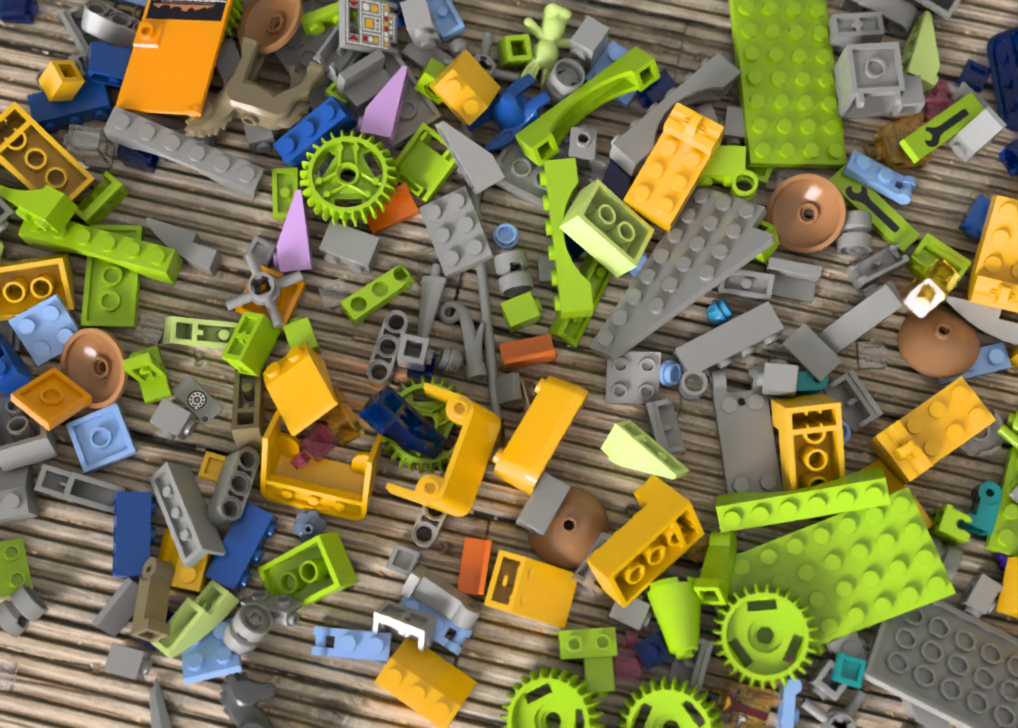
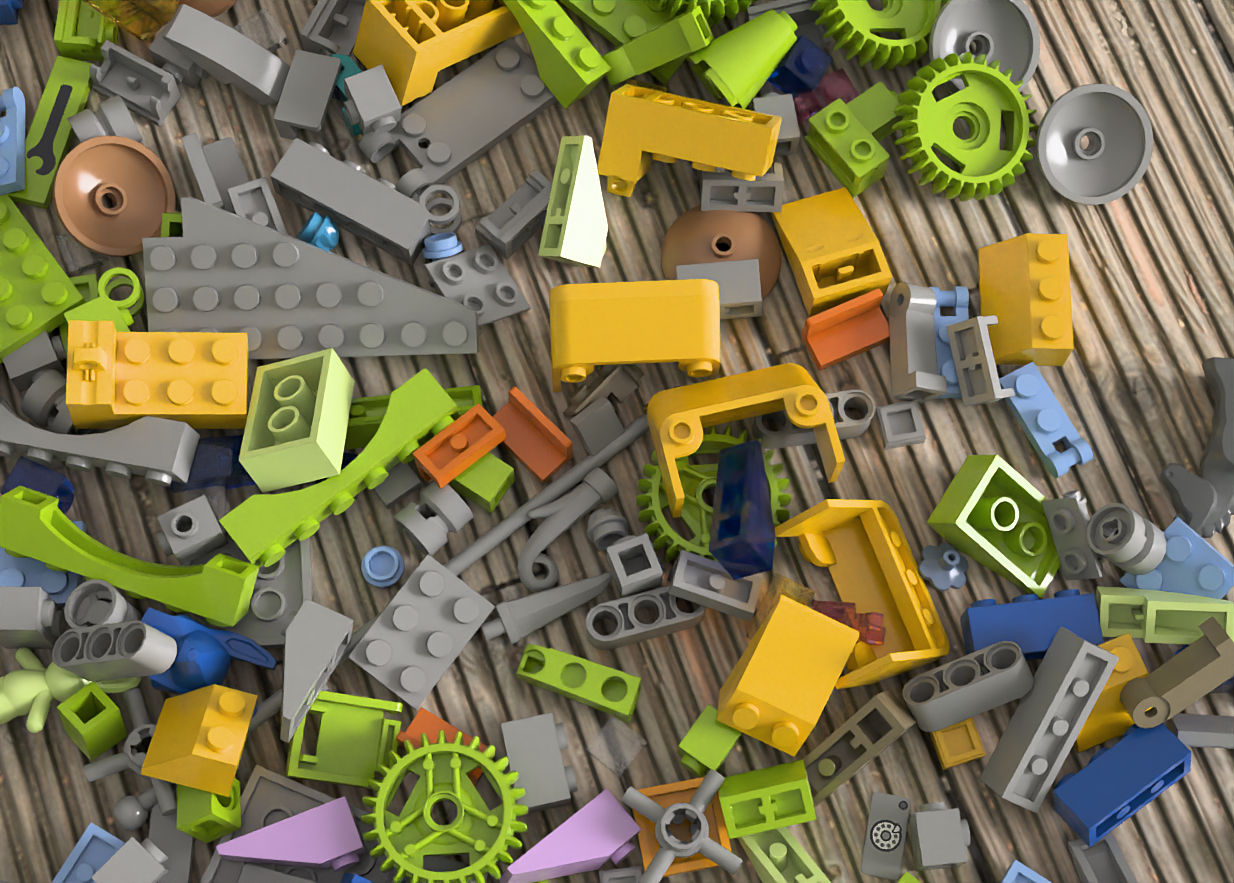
camera: 125 degrees left, 5 degrees down
(374, 382) = (712, 586): none -> light grey panel
(533, 67) = (114, 651): none -> light grey beam
(540, 304) = (458, 446): none -> orange panel

